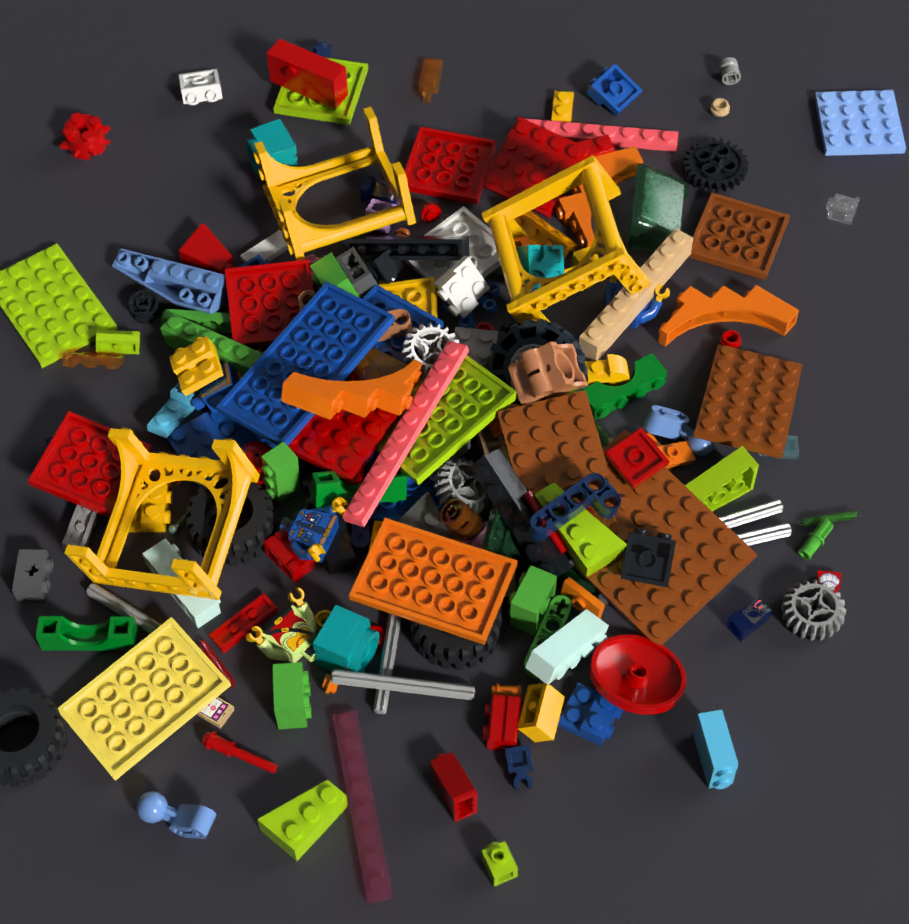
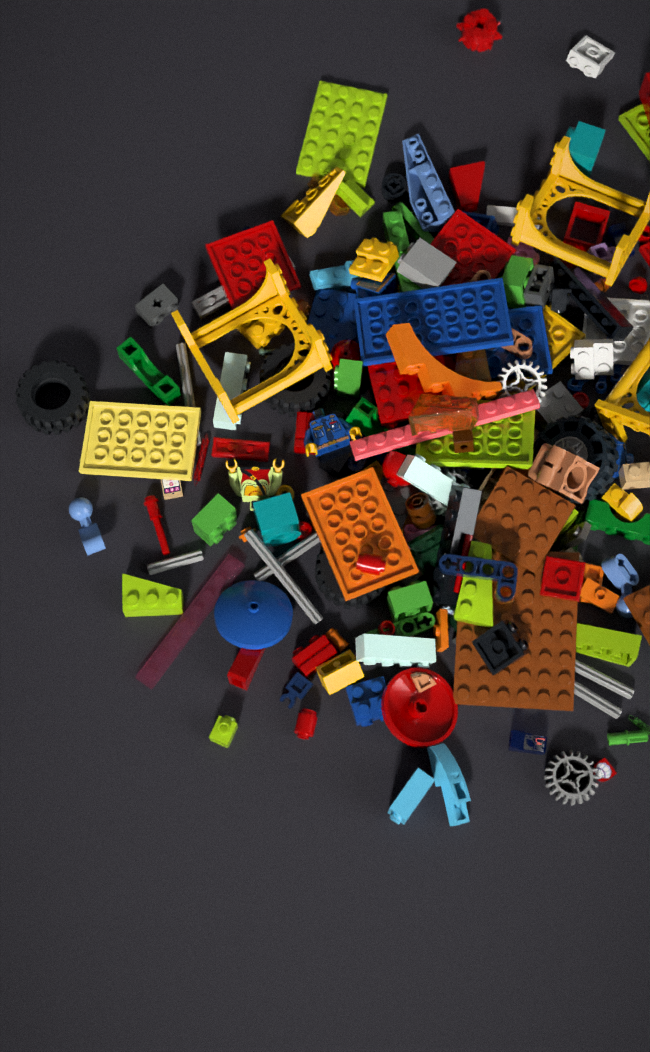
camera: 45 degrees right, 15 degrees up
(92, 378) = (309, 212): none -> yellow wedge
(247, 330) = (425, 265): none -> light grey brick
(290, 769) = (174, 562): none -> light grey axle
(342, 189) = (590, 214): none -> red window
(401, 414) = (443, 412): none -> clear orange wedge
(407, 501) = (390, 467): none -> red cylinder
(414, 740) = (253, 614): none -> blue dish
(437, 424) = (463, 441): none -> reddish brown piece
(444, 483) = (427, 478): none -> light aqua brick
(474, 589) = (370, 563): none -> red brick
(535, 636) = (386, 625): none -> red hinge
(561, 784) = (306, 724): none -> red brick
(605, 422) = (574, 536): none -> flat silver plate
(616, 651) = (422, 681): none -> nougat tile
(736, 706) = (453, 785): none -> medium azure slope

